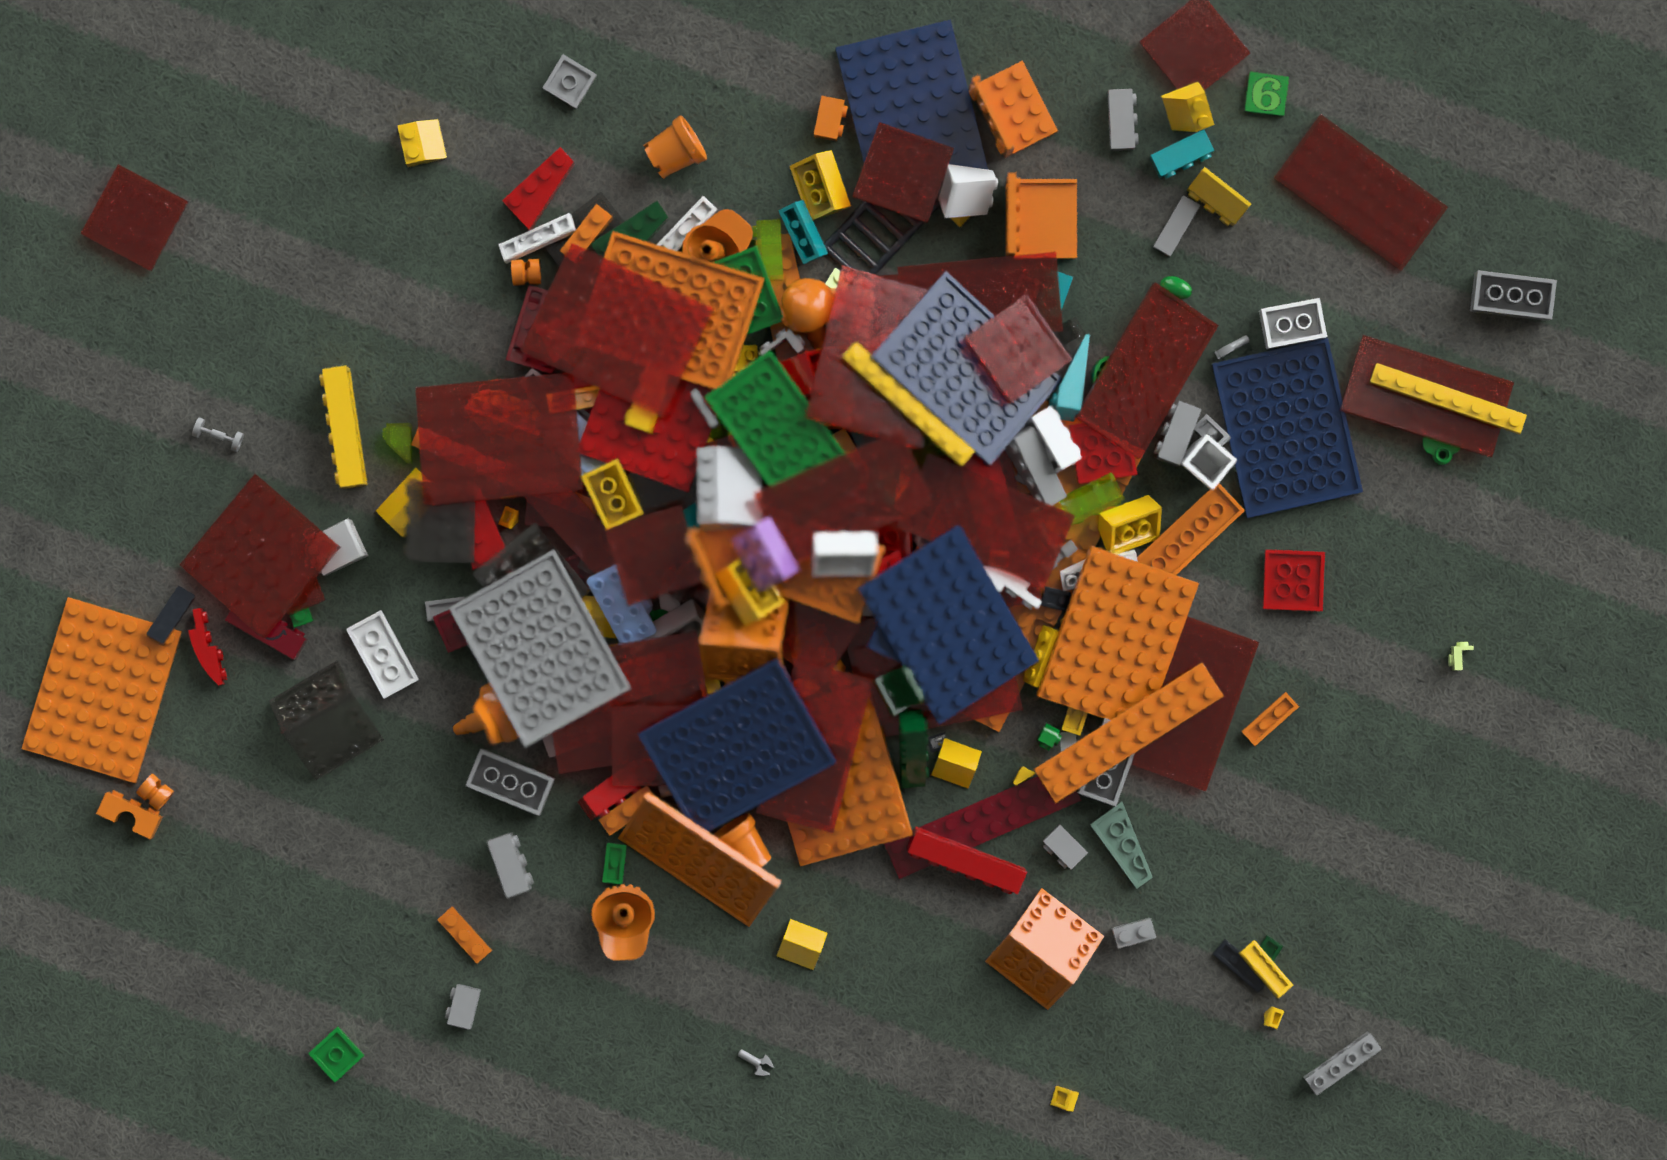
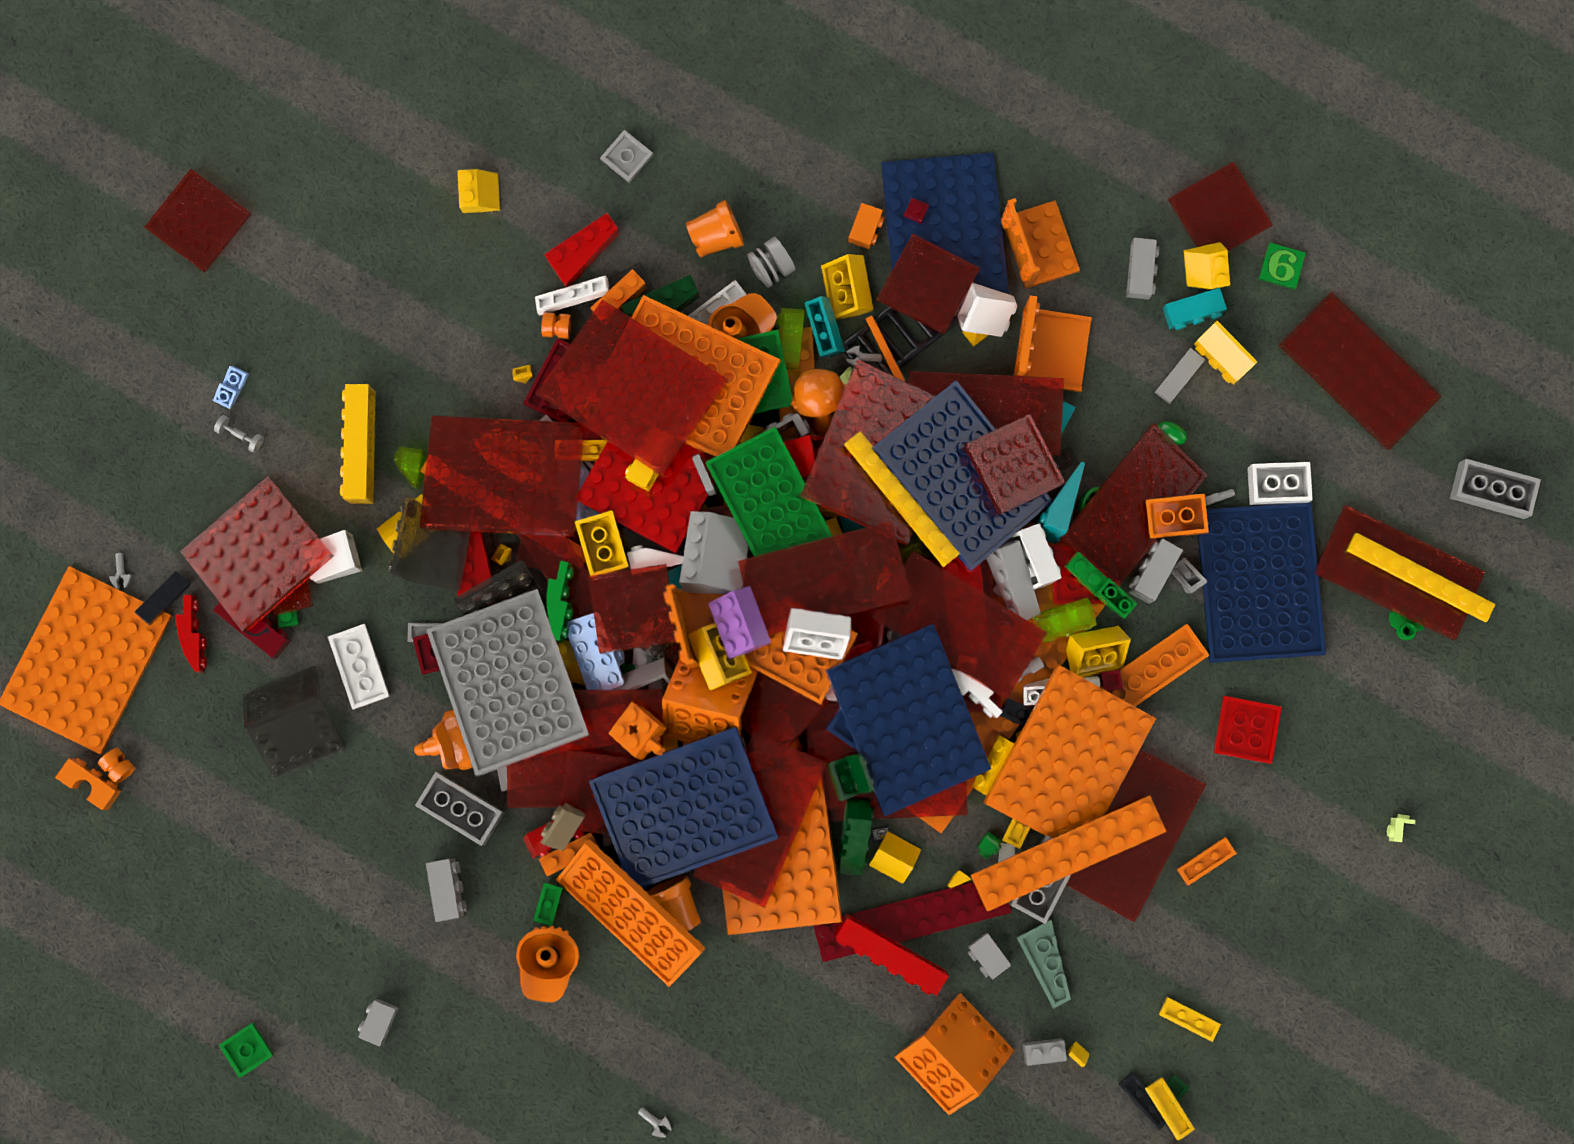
camera: 15 degrees right, 5 degrees down
(121, 595) = (120, 572): none -> light grey bar
(200, 386) = (231, 387): none -> light blue slope
(464, 934) = (391, 951): orange plate -> none
(498, 327) = (522, 374): none -> yellow slope
(579, 568) = (557, 608): none -> green slope
(619, 785) = (563, 827): none -> dark tan slope
(661, 500) = (645, 557): none -> white slope
(680, 678) = (638, 731): none -> orange hinge
(737, 172) = (771, 261): none -> light grey wheel
(802, 944) = (718, 1012): yellow slope -> none
(847, 256) = (862, 356): none -> light grey bar
(869, 247) = (884, 348): none -> orange tile
(879, 95) = (916, 210): none -> dark red plate
(1122, 458) = (1100, 585): none -> green slope
(1148, 552) = (1111, 680): none -> dark red plate
(1168, 930) = (1078, 1054): none -> yellow slope
(1191, 374) = (1177, 516): none -> orange slope
(1208, 461) = (1183, 600): white slope -> none
(1274, 878) = (1189, 1019): none -> yellow tile

